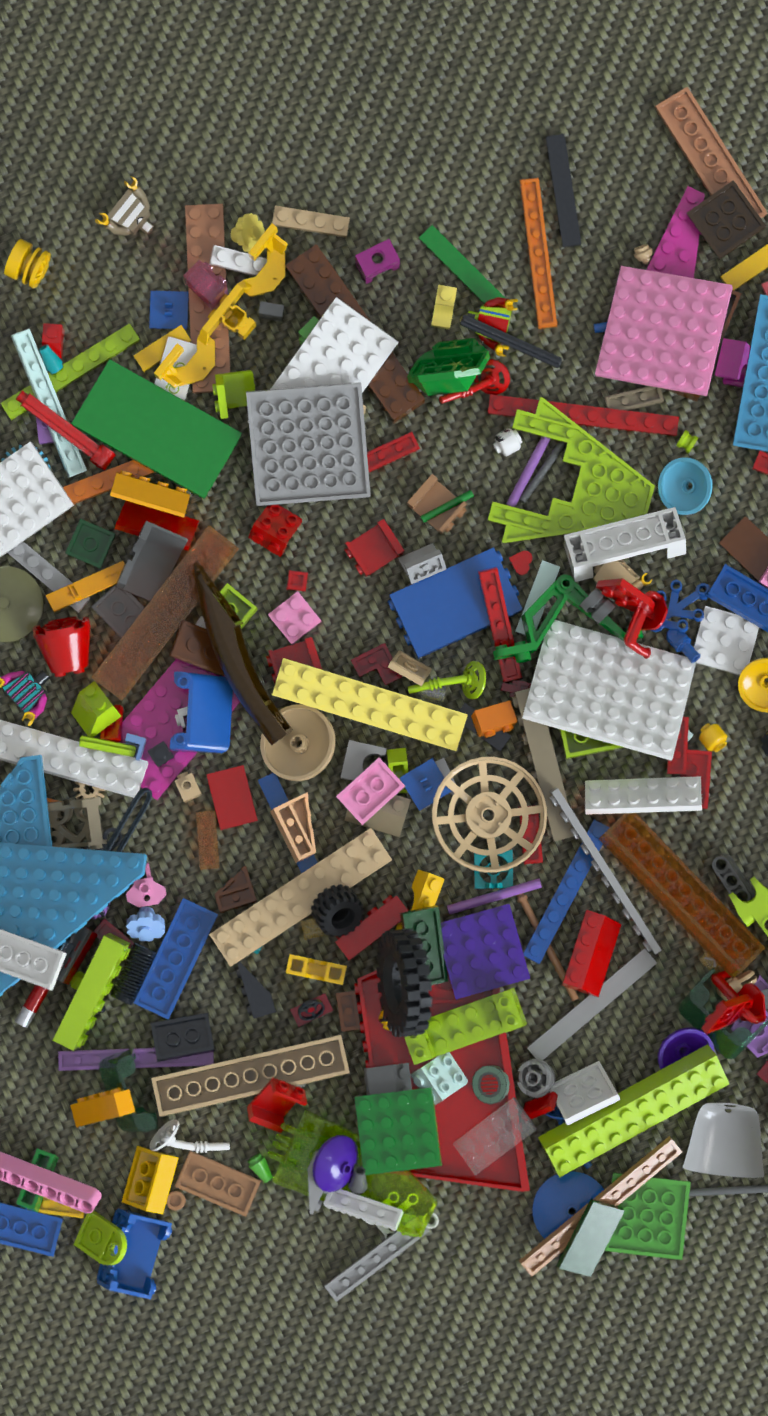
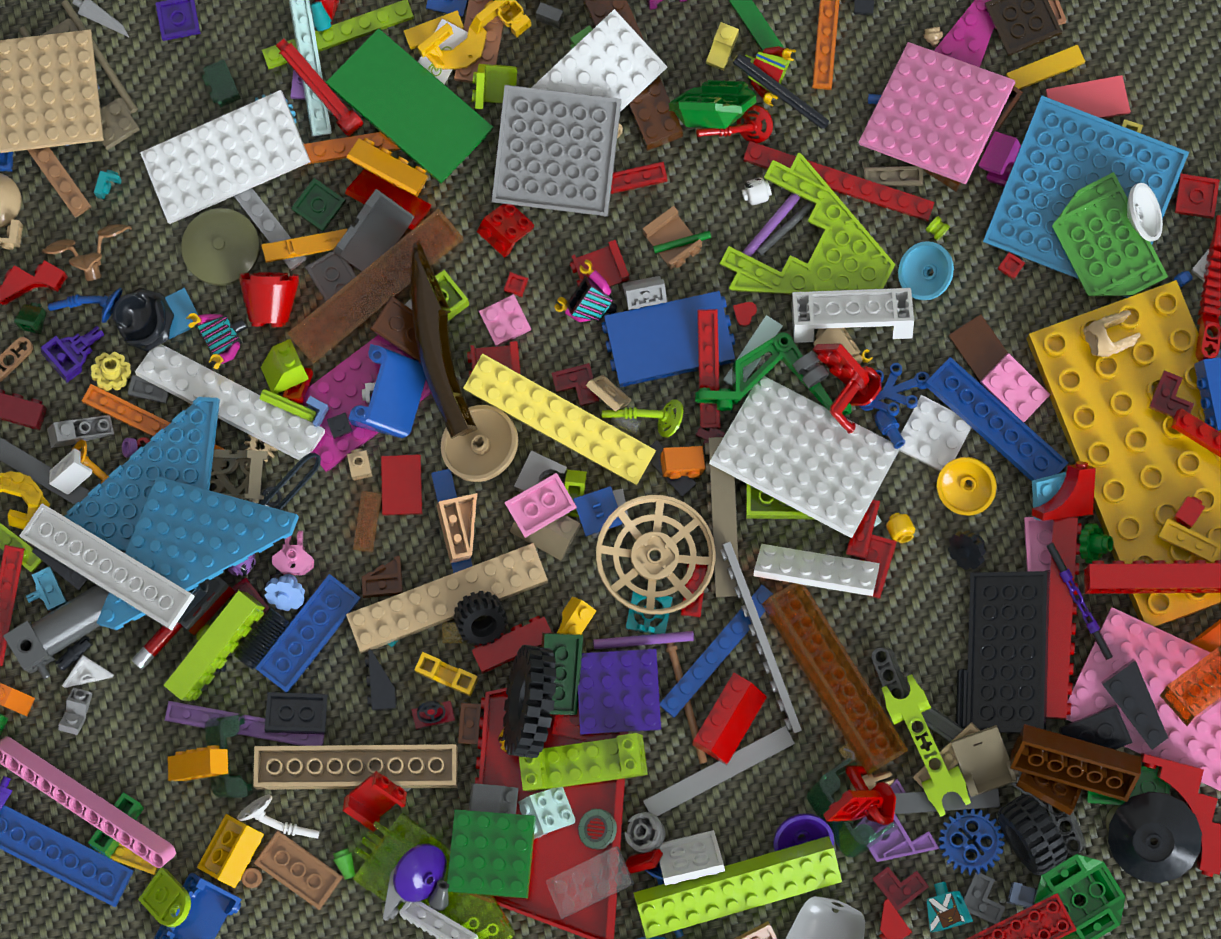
camera: 20 degrees right, 5 degrees down
(372, 581) = (590, 299): none -> torso

